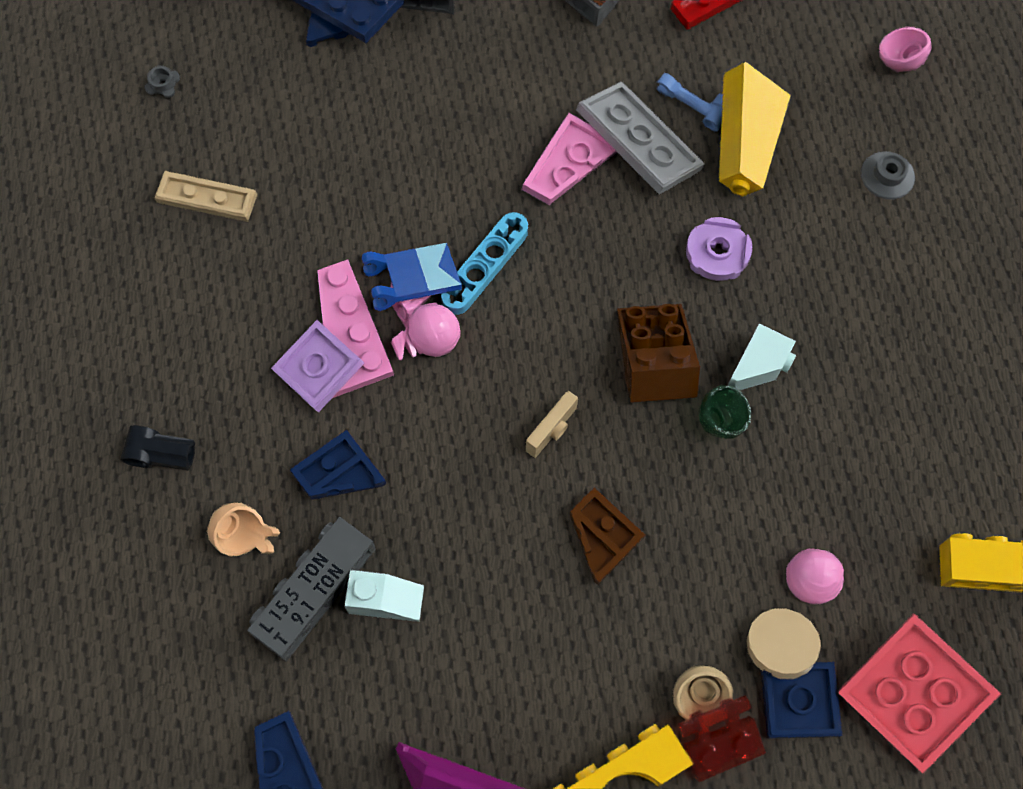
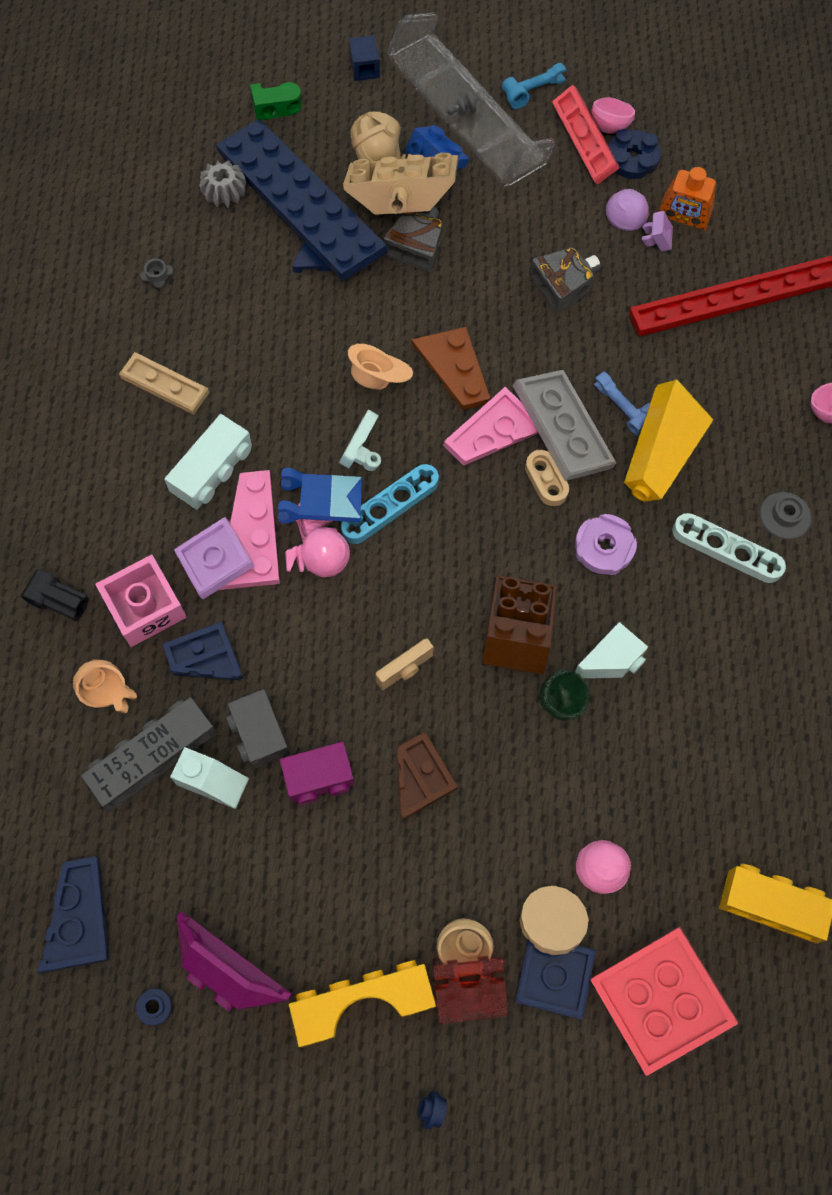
camera: 15 degrees right, 0 degrees up
(254, 429) = (141, 600): none -> bright pink brick
(281, 267) = (209, 462): none -> light aqua brick
(419, 532) = (258, 729): none -> dark grey brick
(429, 126) = (375, 368): none -> light nougat piece
(431, 216) = (356, 451): none -> light aqua piece
(496, 560) = (317, 773): none -> magenta brick
(510, 103) = (456, 365): none -> dark orange wing
(640, 197) = (546, 479): none -> tan plate
(842, 217) = (730, 543): none -> light aqua beam

